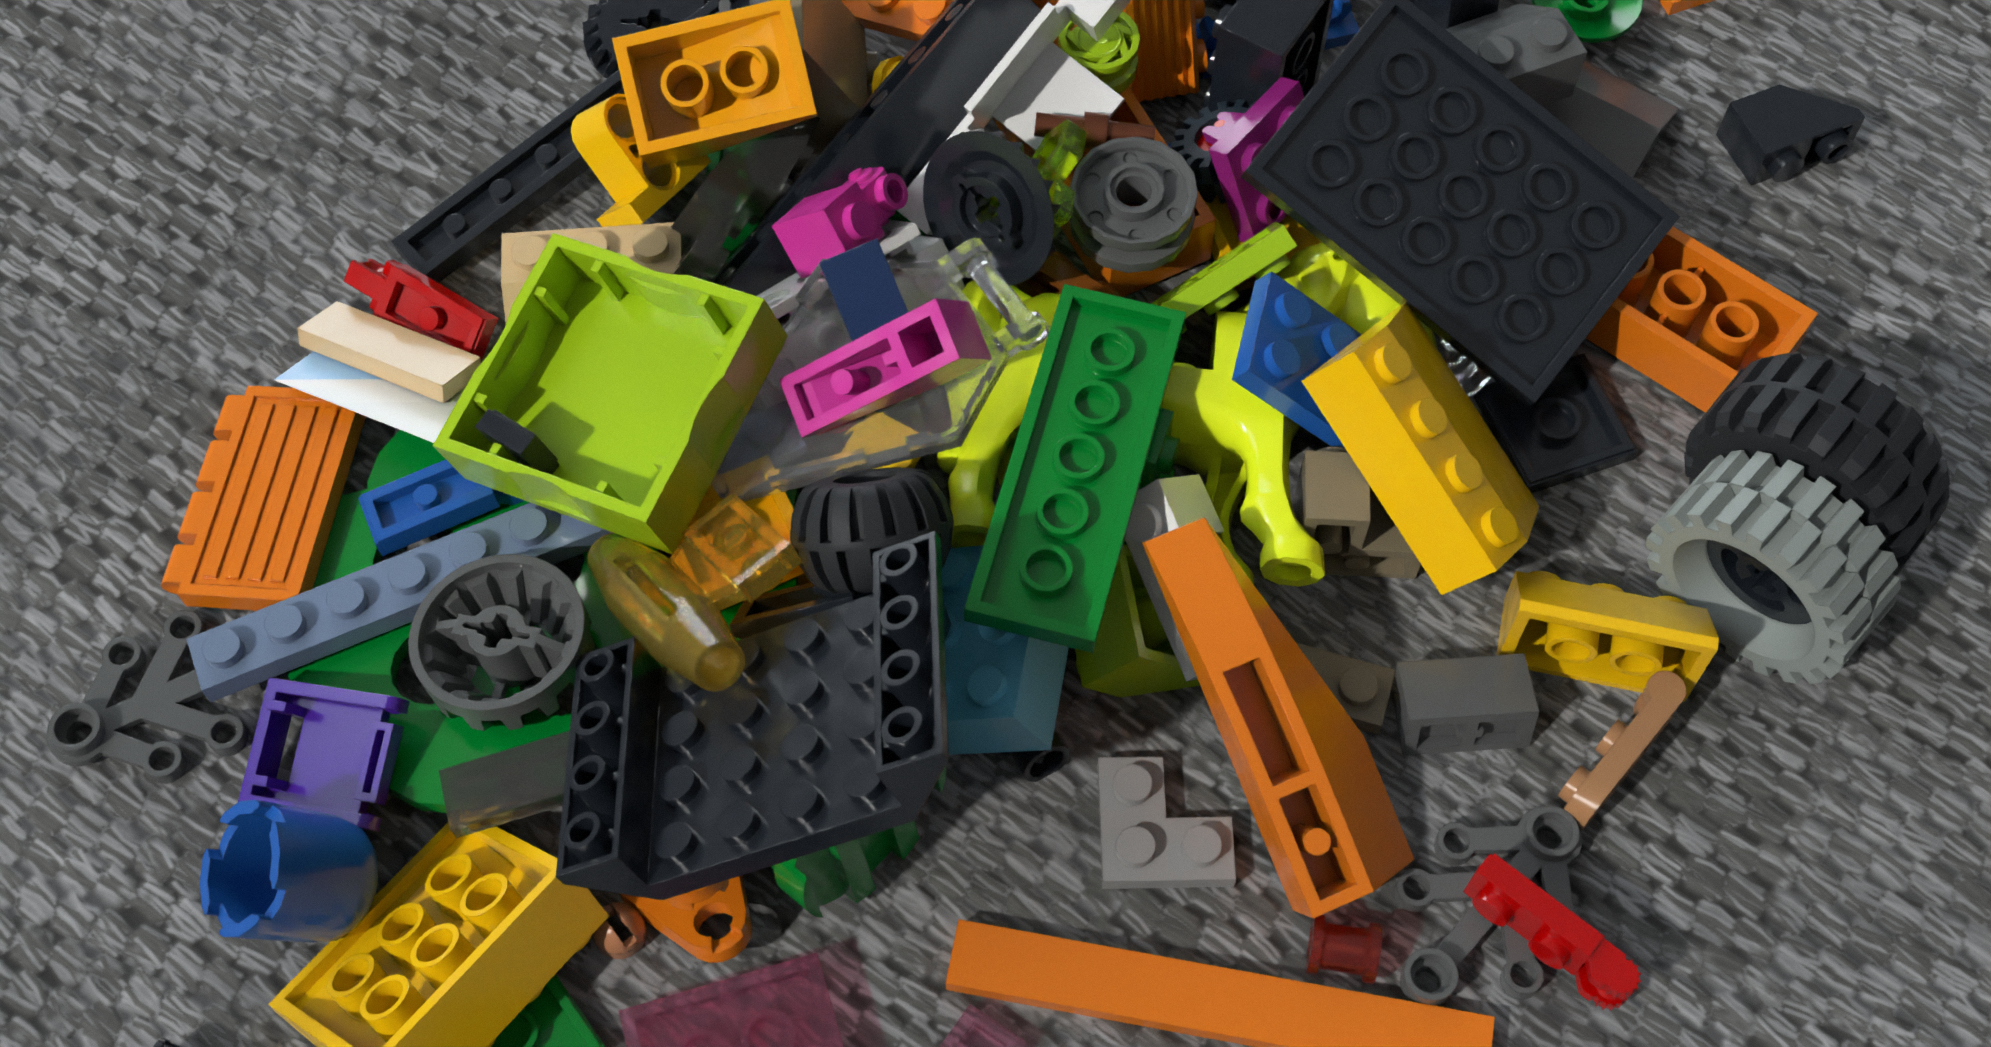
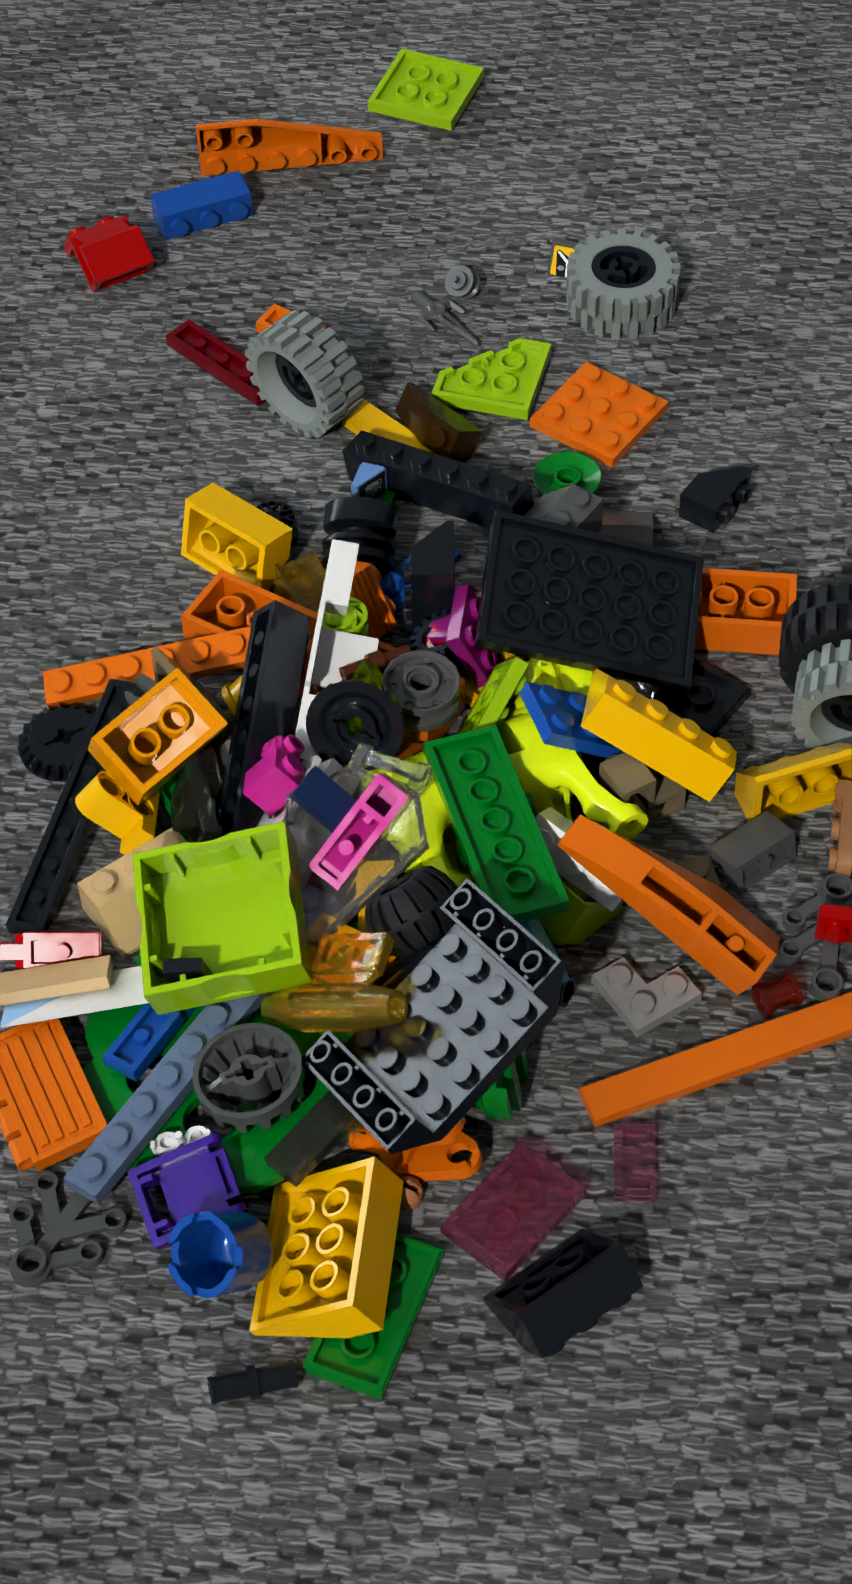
camera: 30 degrees left, 10 degrees down
(356, 672) = (171, 1141): none -> white piece

